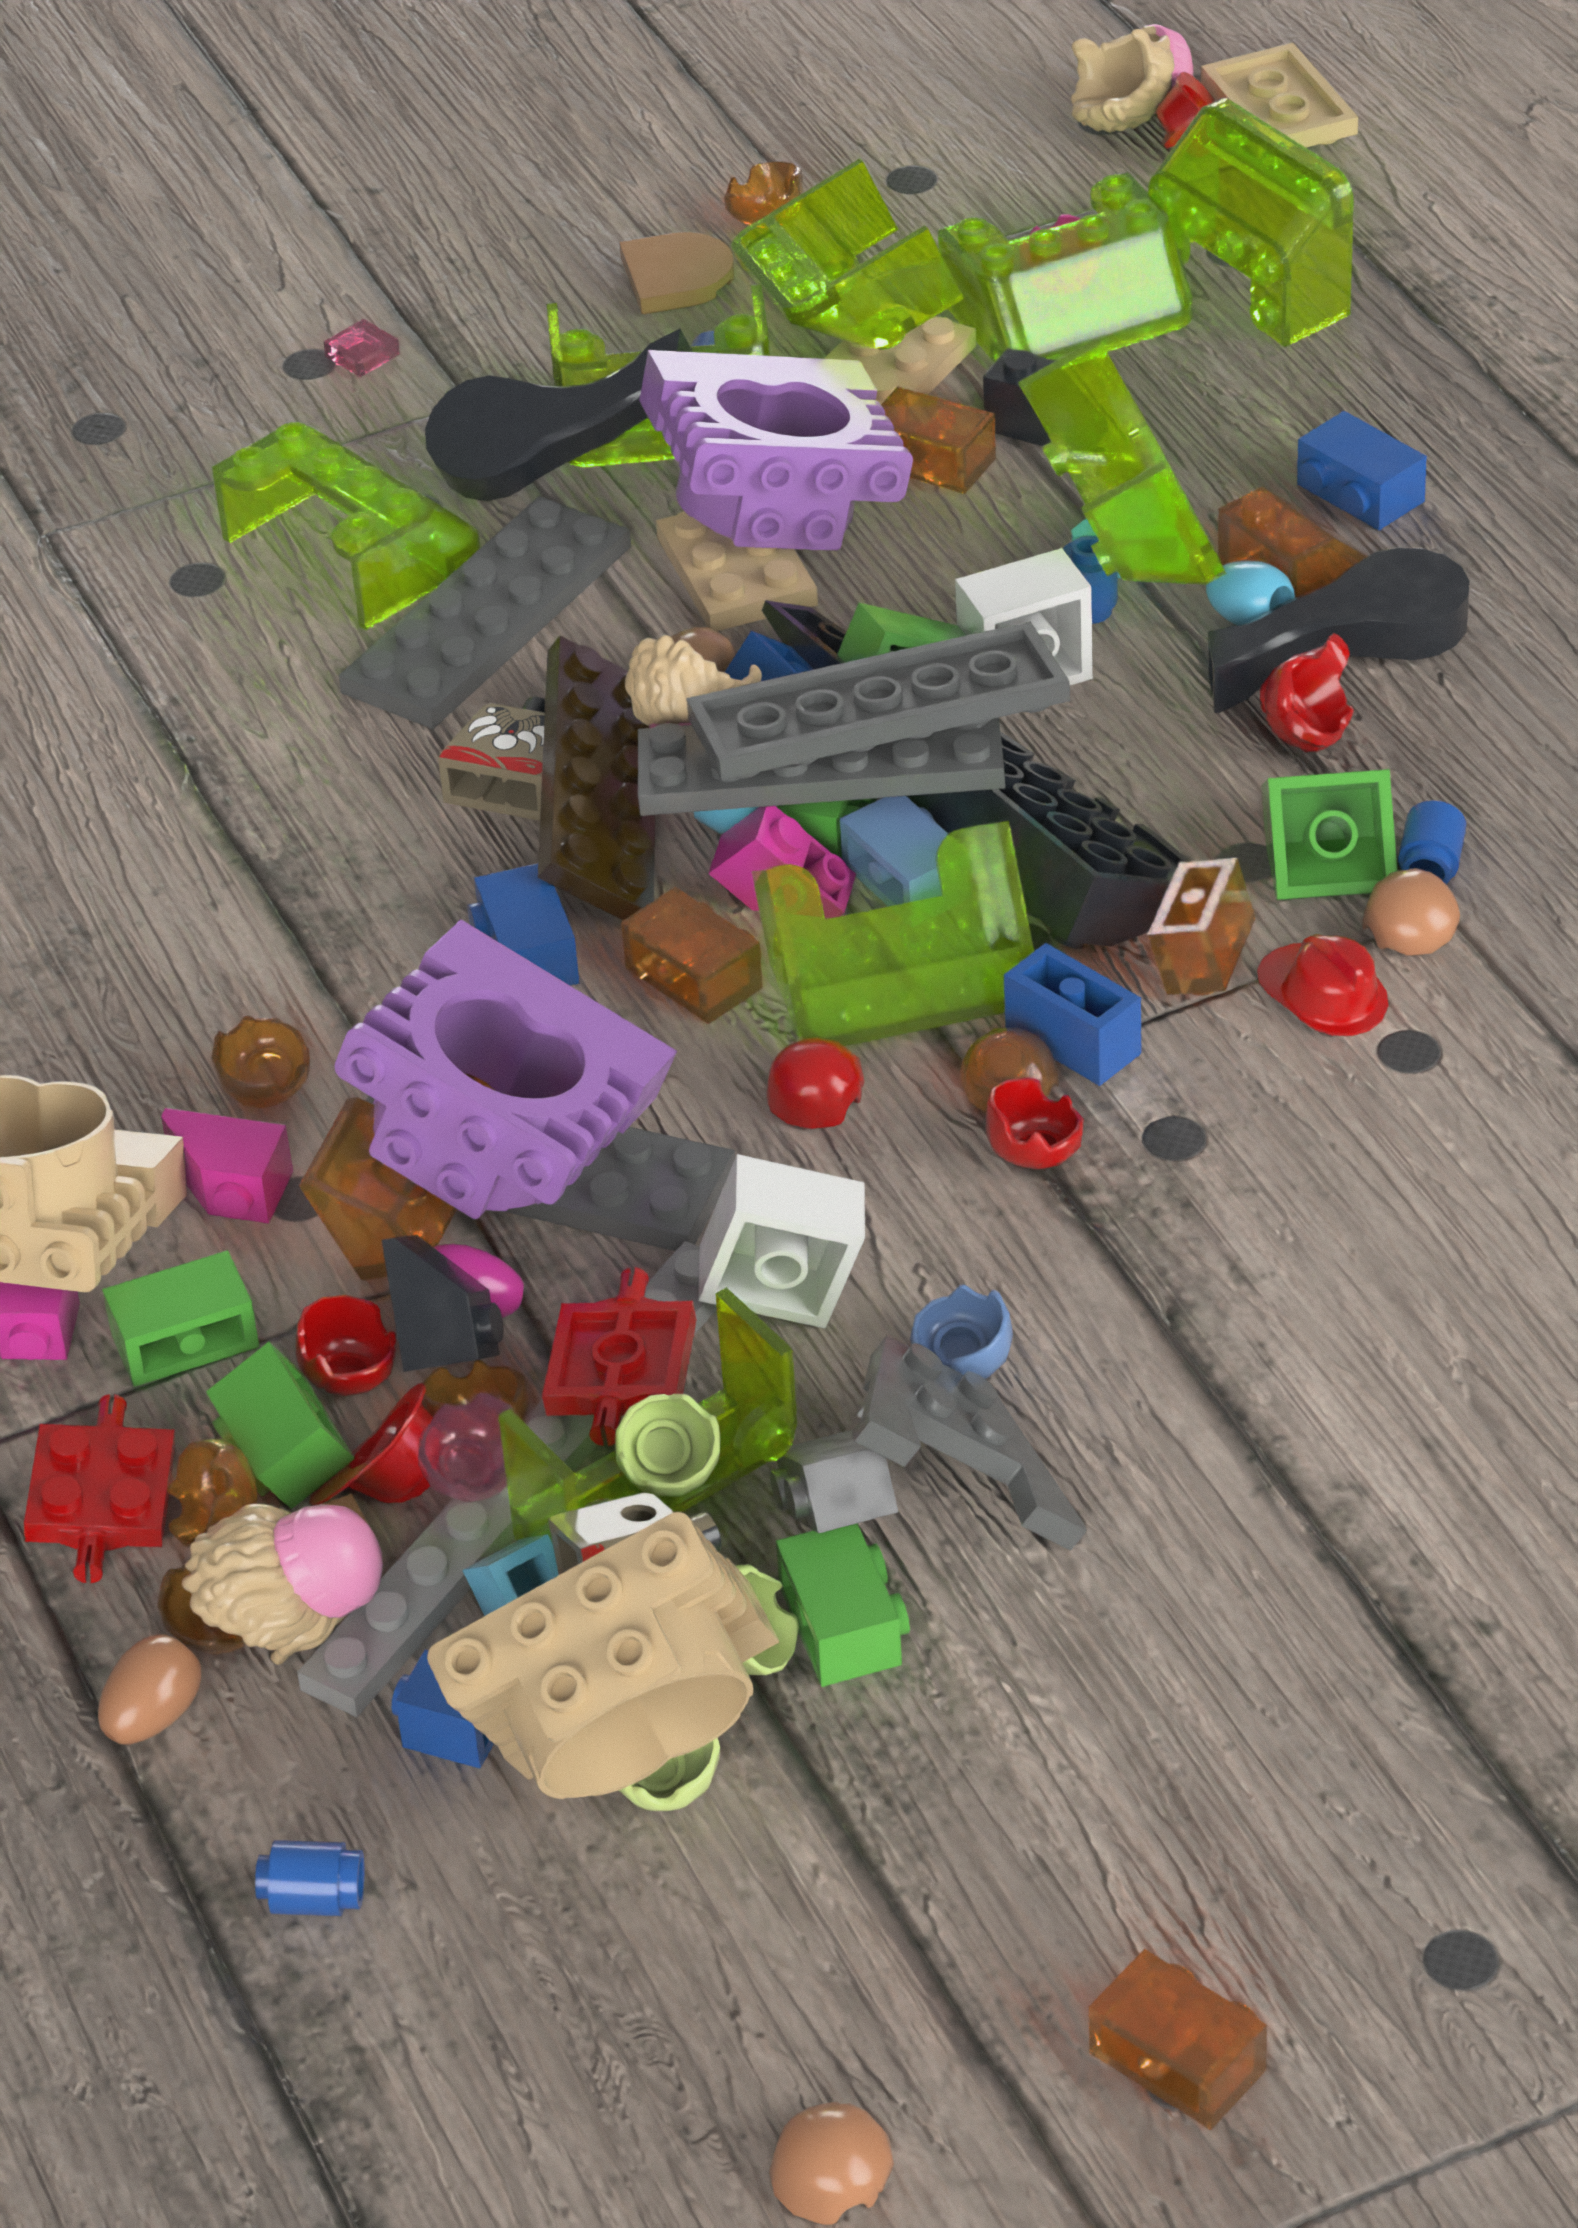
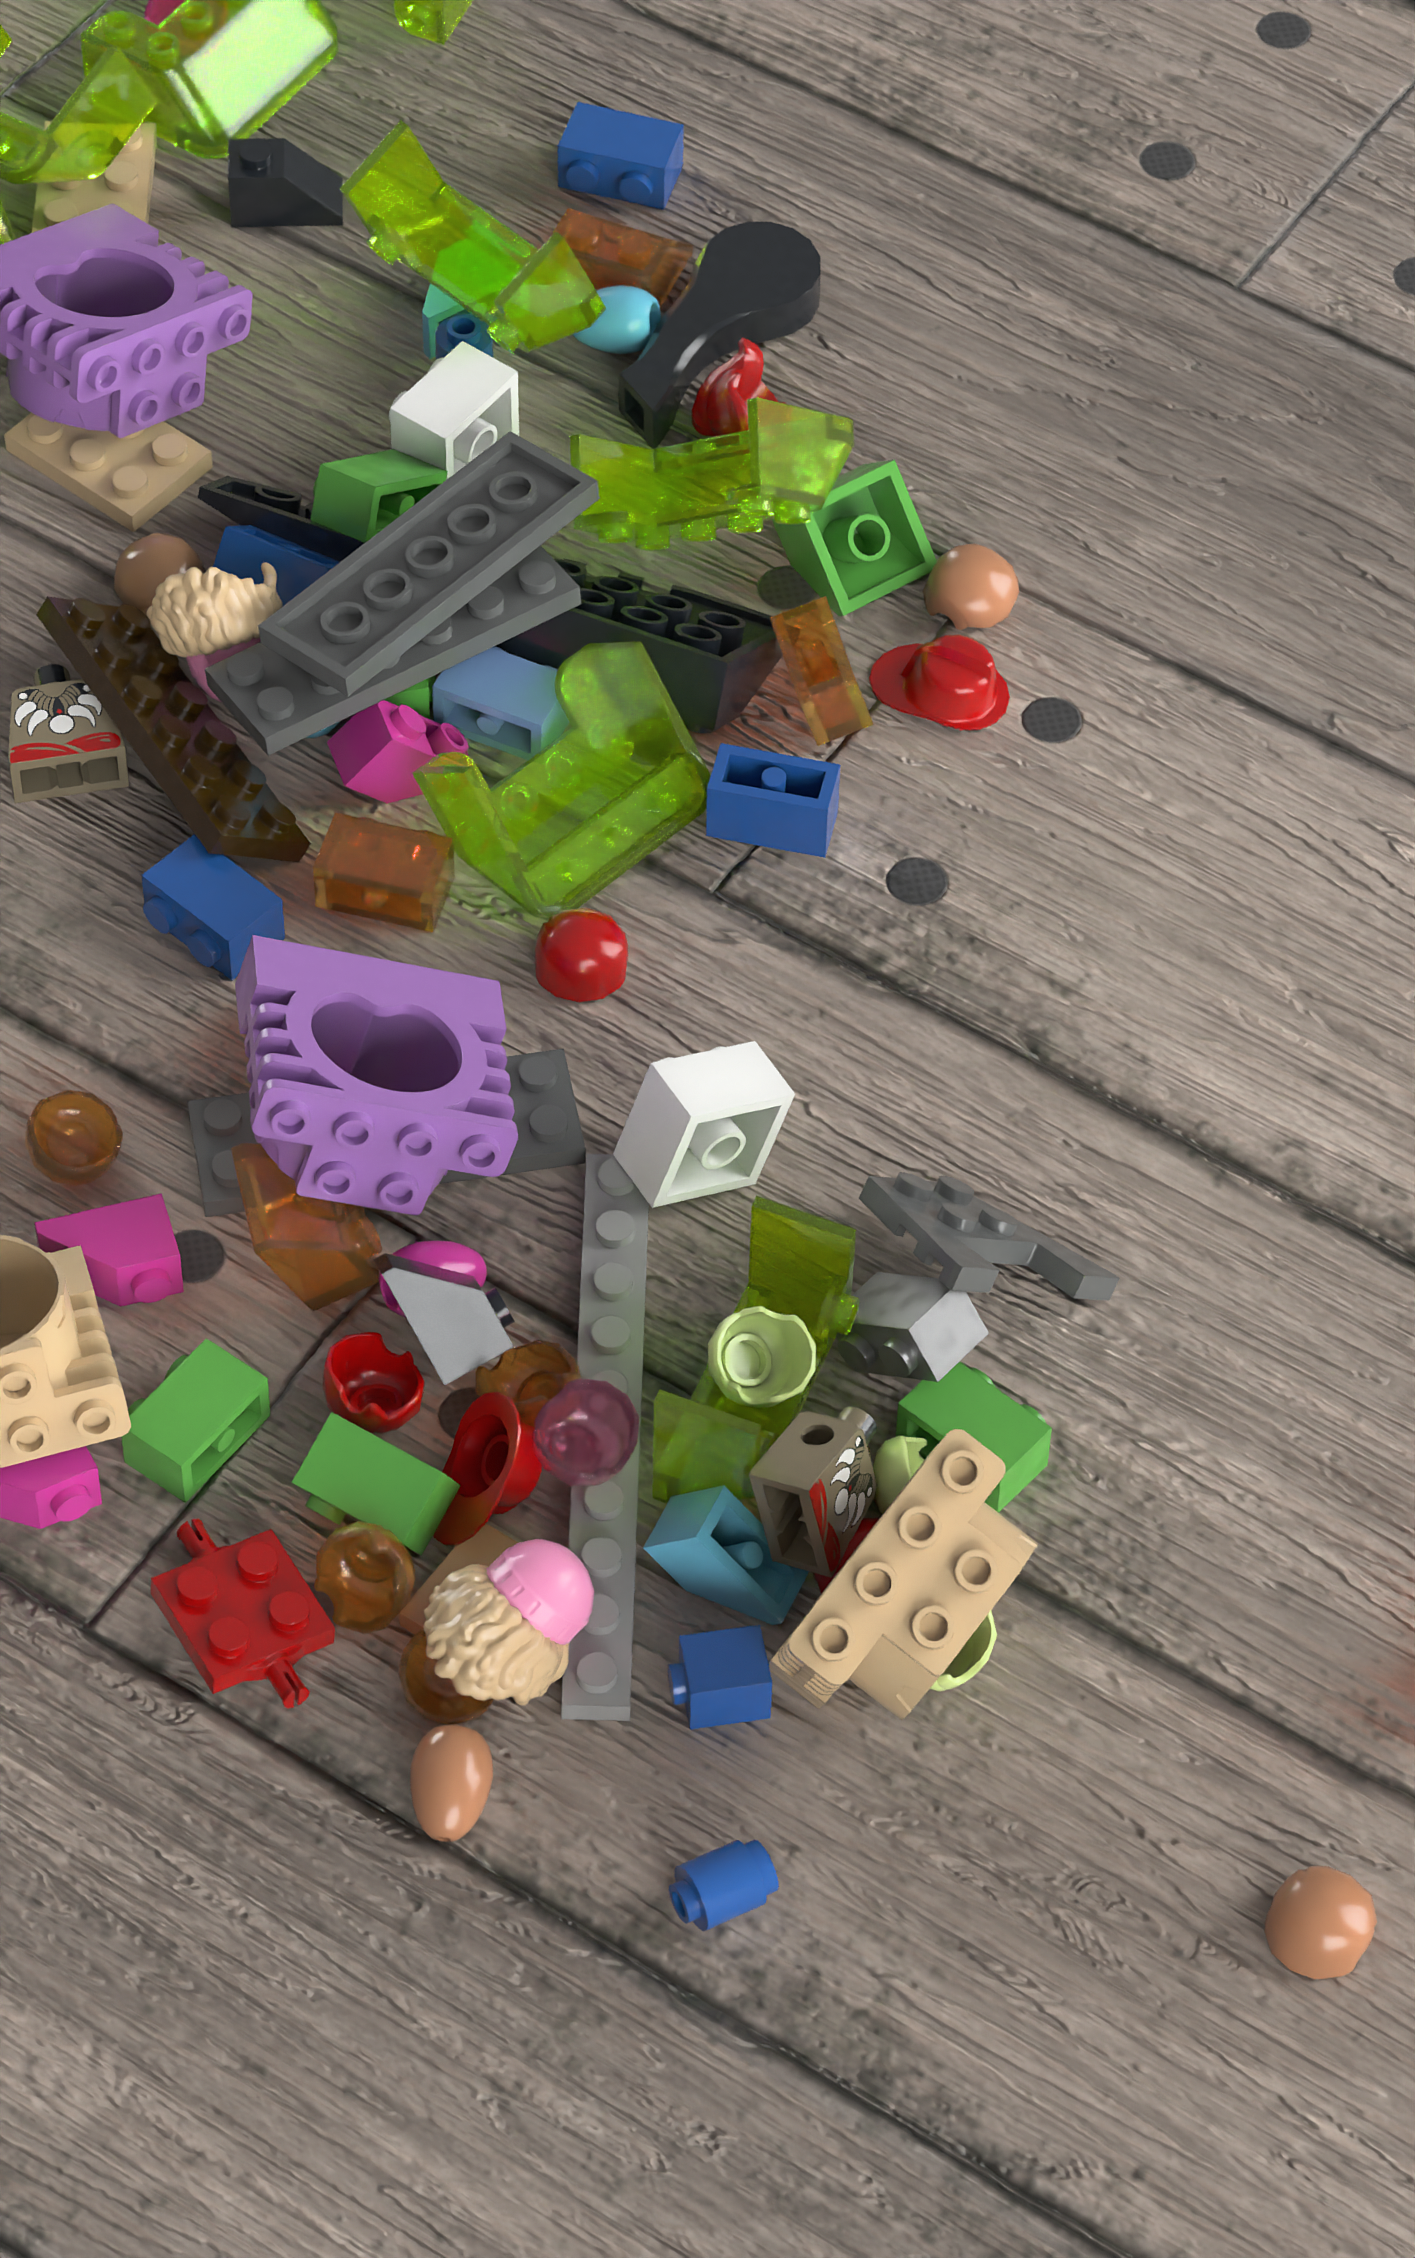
camera: 35 degrees left, 10 degrees up
(617, 1354) = (640, 1291): red plate -> none
(946, 439) = (221, 241): clear orange brick -> none
(966, 1330) = (897, 1138): medium blue hair -> none
(1005, 1056) = (743, 876): clear orange hair -> none
(1030, 1127) = (810, 922): red hair -> none
(1242, 730) = (716, 483): none -> clear neon green windscreen
(1433, 839) = (945, 511): blue brick -> none

